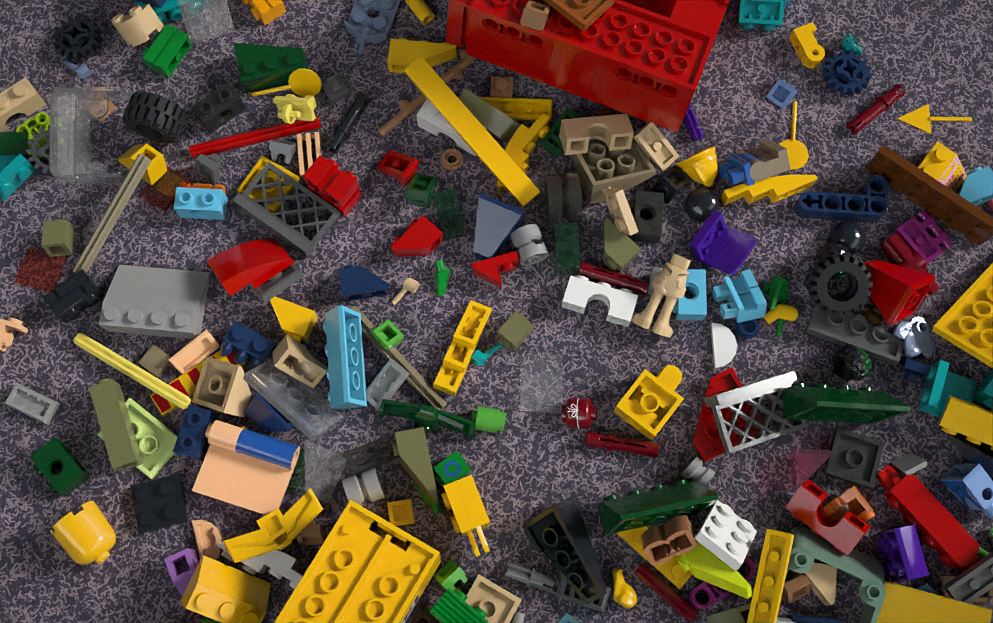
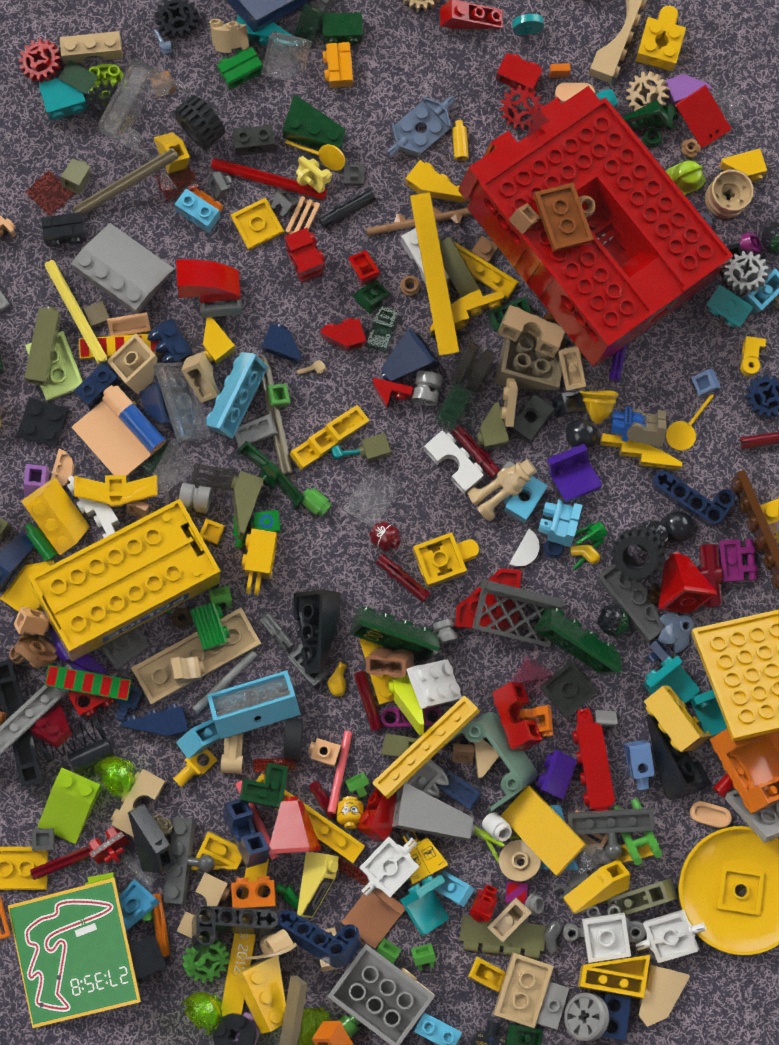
camera: 25 degrees right, 5 degrees up
(276, 225) = (243, 257): dark grey fence -> none
(441, 277) = (345, 374): green bar -> none

